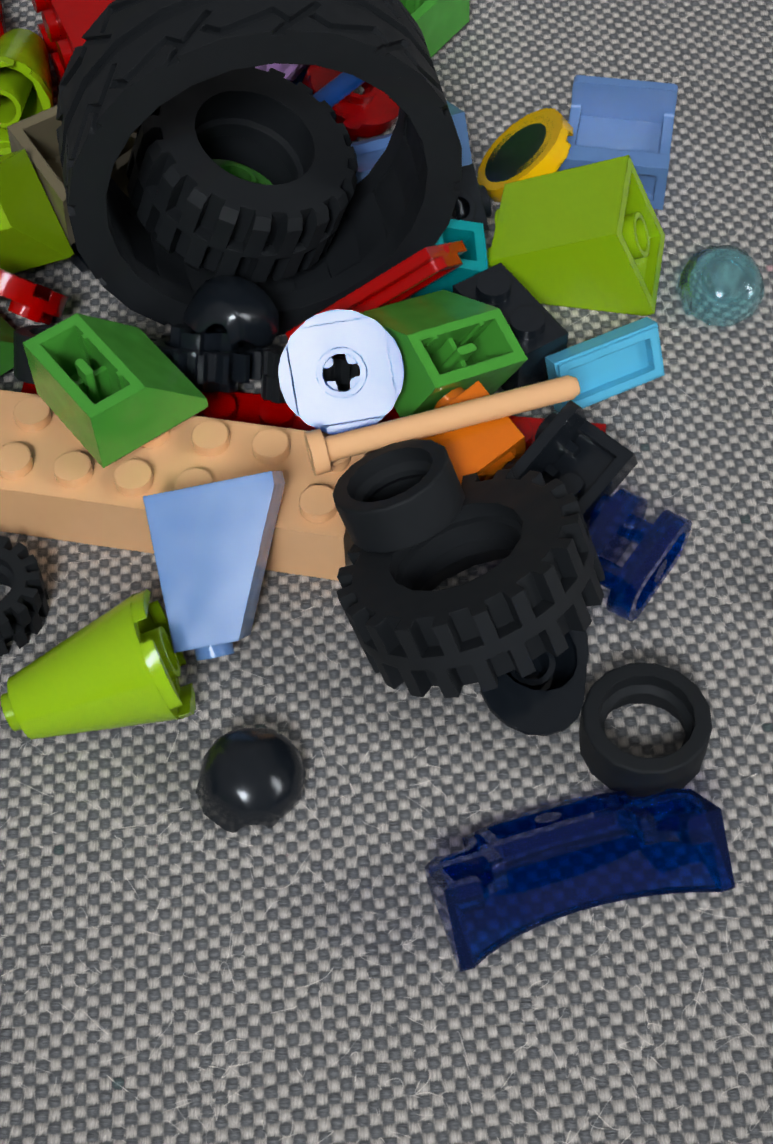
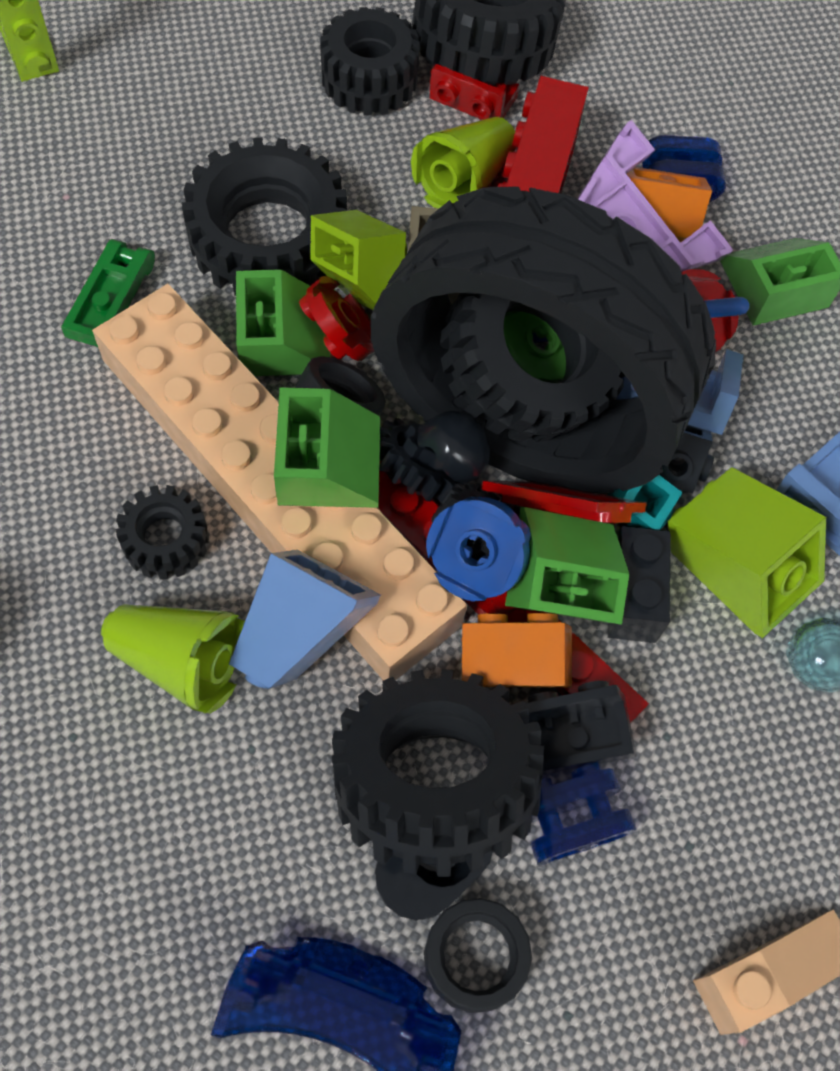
camera: 30 degrees right, 10 degrees up
(250, 779) = (211, 785): black hair -> none
(399, 496) = (438, 699): black tyre -> none
(436, 421) = (421, 599): light nougat bar -> none
(525, 150) = (770, 450): tile -> none
(610, 362) = (685, 659): medium azure tile -> none

